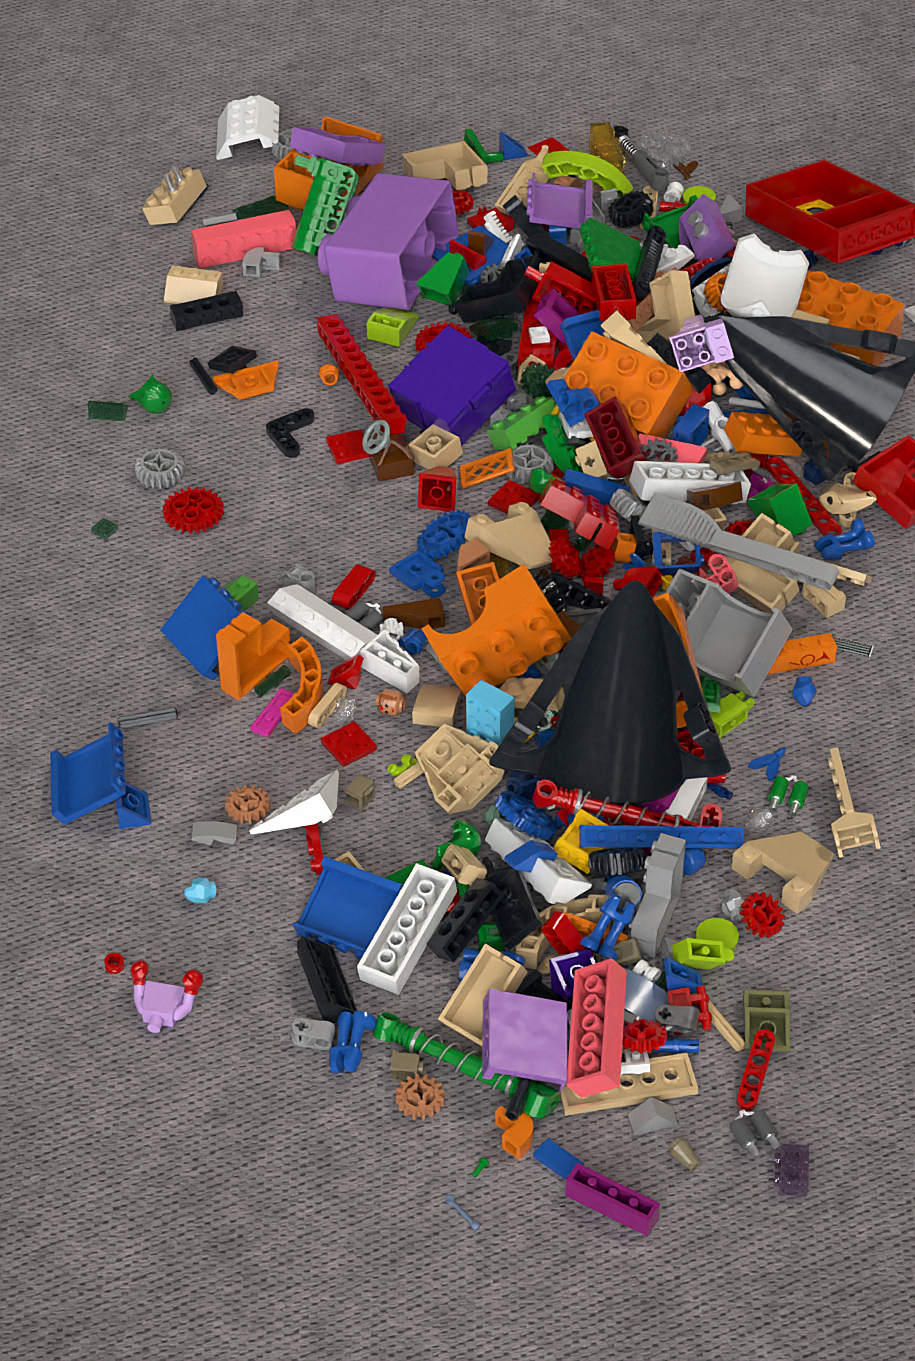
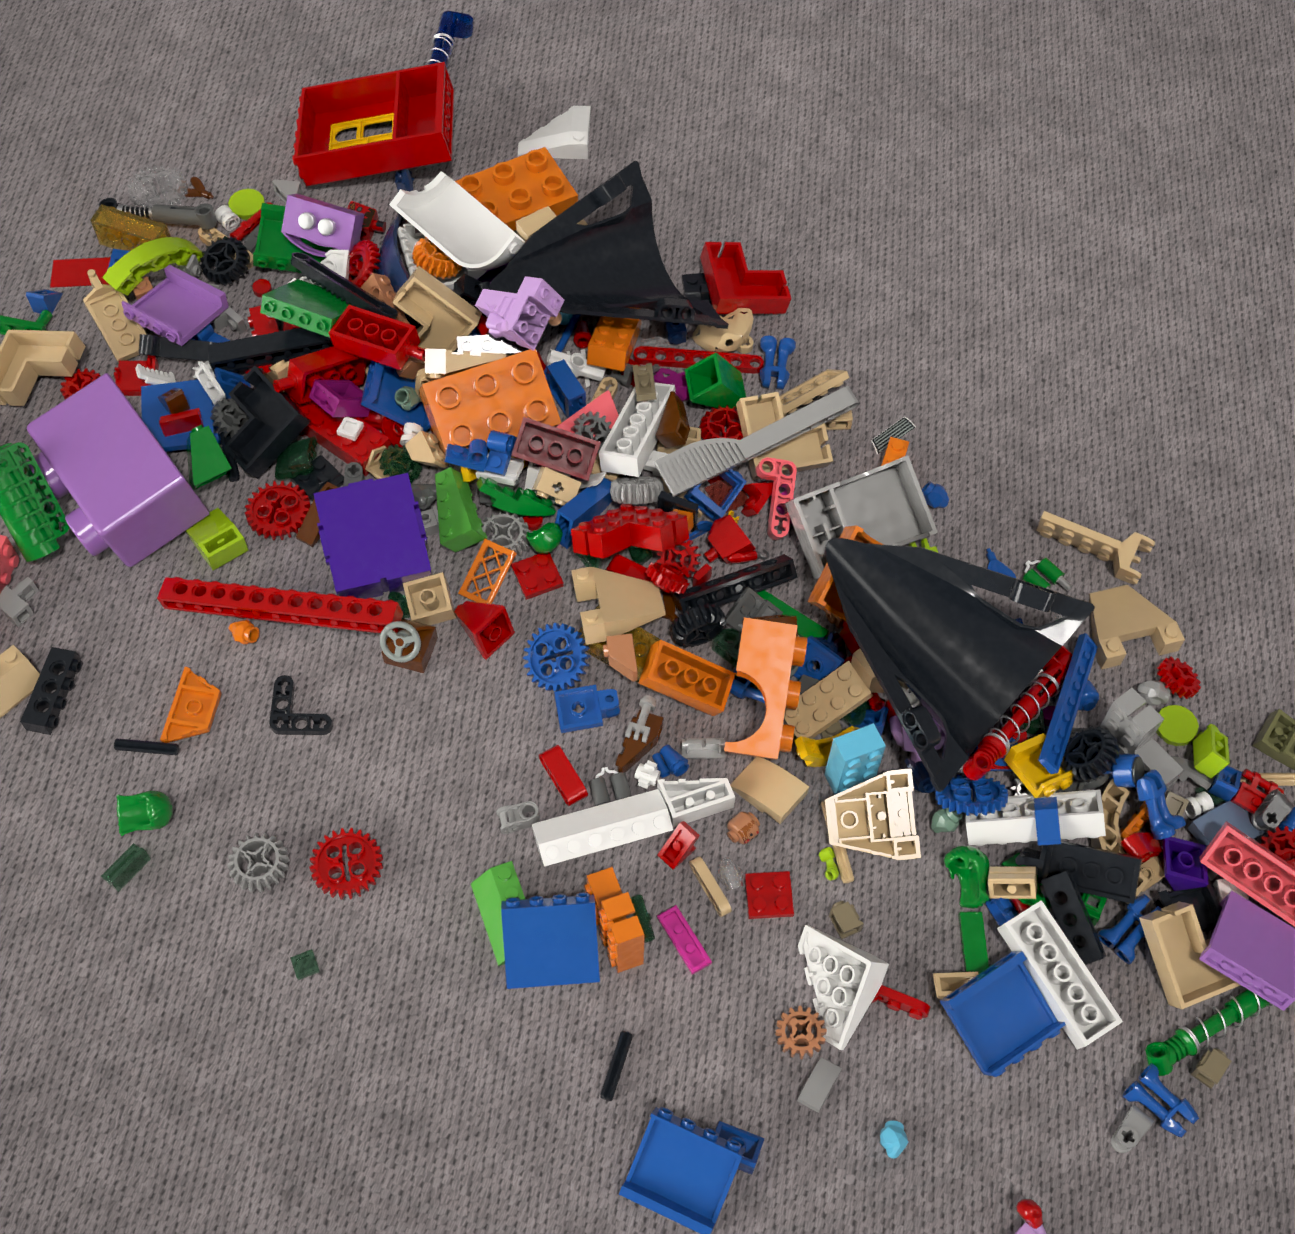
camera: 60 degrees left, 15 degrees up
(232, 359) = (149, 706): black hinge -> none
(300, 705) = (678, 885): orange brick -> none
(325, 979) = (1074, 1082): black piece -> none
(347, 446) = (357, 672): red plate -> none
(410, 1101) = (1244, 1079): nougat gear -> none
(419, 603) = (647, 703): none -> light grey hinge
(745, 402) = (566, 321): white bar -> none

